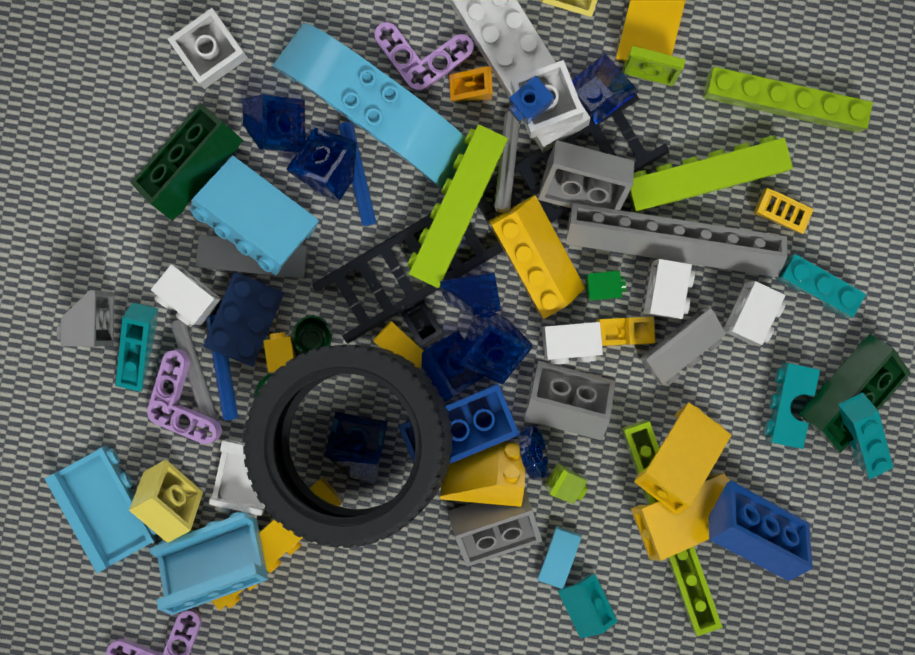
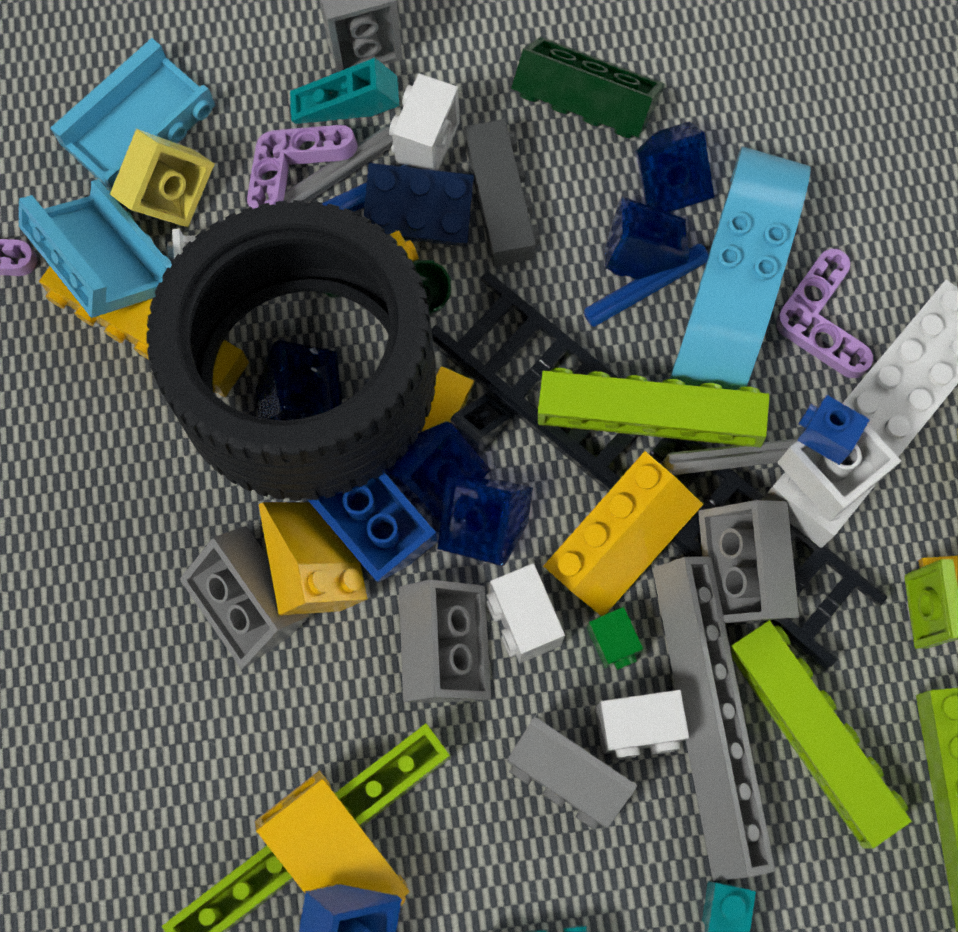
camera: 75 degrees right, 15 degrees down
(207, 48) = (733, 64): white brick -> none
(253, 215) = (551, 171): medium azure panel -> none
(471, 85) = (811, 382): light orange slope -> none
(473, 294) = (546, 463): clear blue slope -> none
(531, 450) = (357, 610): clear blue tile -> none
(559, 557) = (225, 698): medium azure slope -> none
(566, 484) = (326, 668): lime slope -> none
(588, 607) = (167, 761): teal panel -> none
(602, 88) = (874, 551): clear blue slope -> none
(627, 331) = (563, 690): yellow slope -> none
(684, 459) = (411, 820): yellow panel -> none
(755, 313) = (651, 859): white brick -> none
(761, 210) = (822, 861): yellow slope -> none

